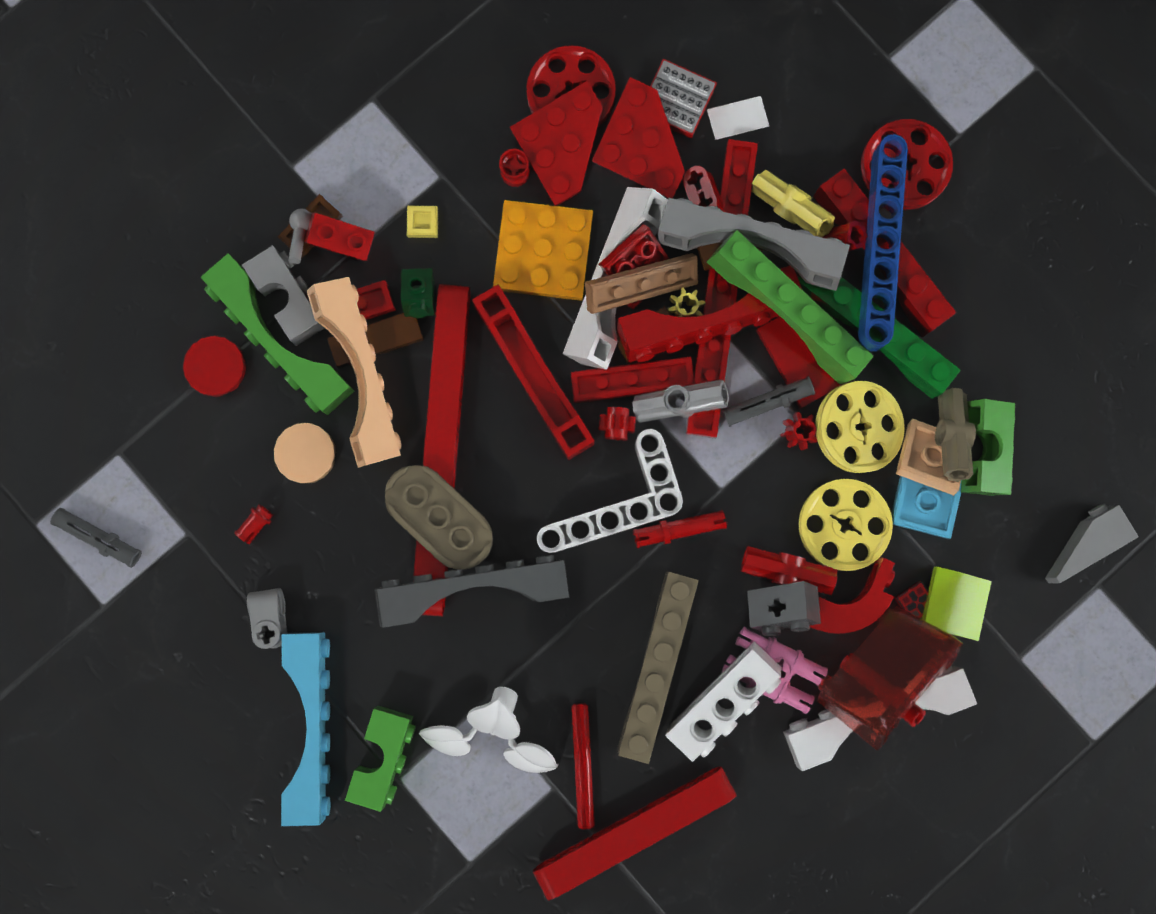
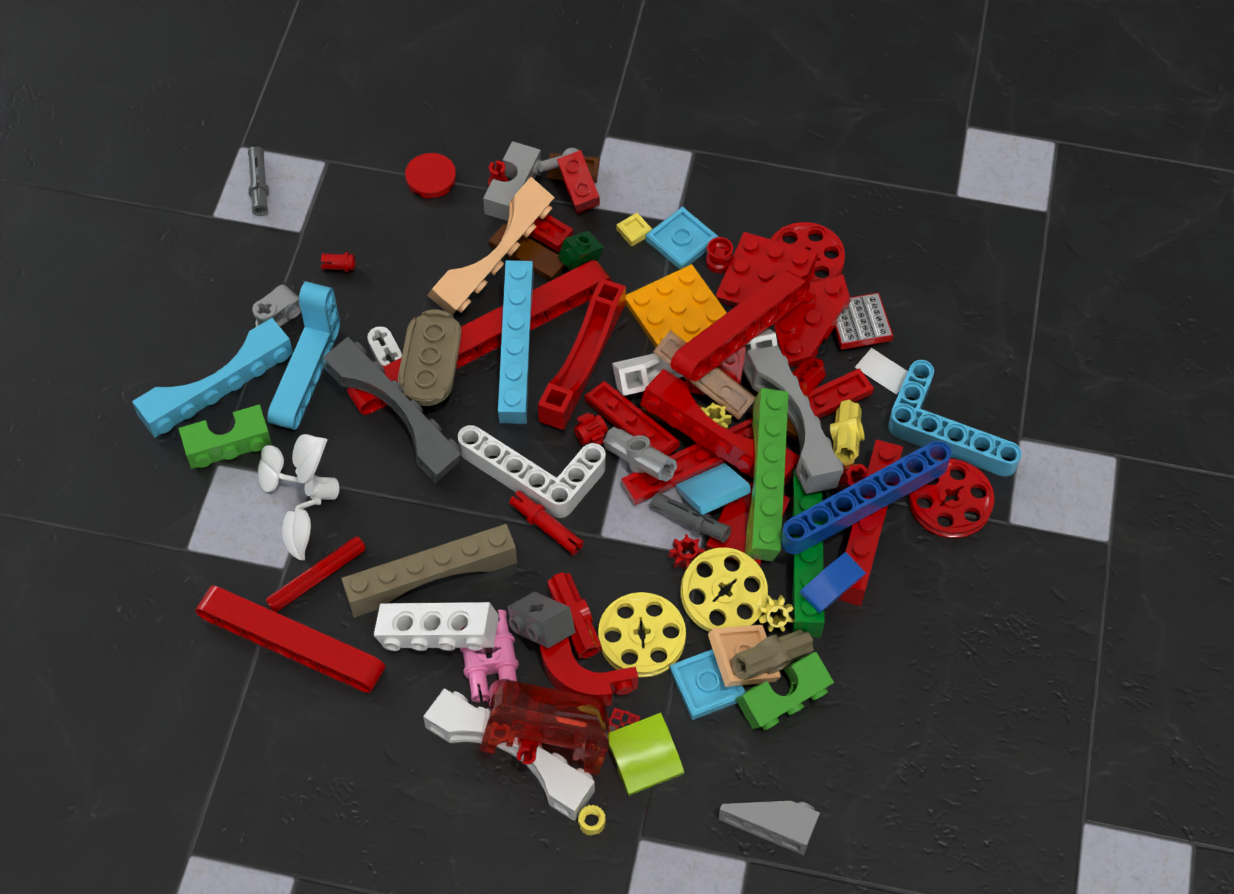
camera: 55 degrees right, 25 degrees down
(265, 307) = (497, 173): none -> red pin
(304, 453) = (412, 261): light nougat tile -> none
(319, 381) = (469, 236): bright green arch -> none
(325, 595) = (306, 364): none -> medium azure beam
(388, 538) = (380, 352): none -> white beam
(465, 185) = (681, 238): none -> medium azure tile
(480, 426) = (515, 342): none -> medium azure arch
(627, 216) = (739, 326): none -> red beam
(757, 361) = (713, 488): none -> medium azure tile
(840, 119) = (944, 428): none -> medium azure beam
(913, 399) = (778, 621): none -> light yellow gear
(939, 336) = (832, 582): none -> blue slope
(992, 688) = (591, 830): none -> light yellow axle

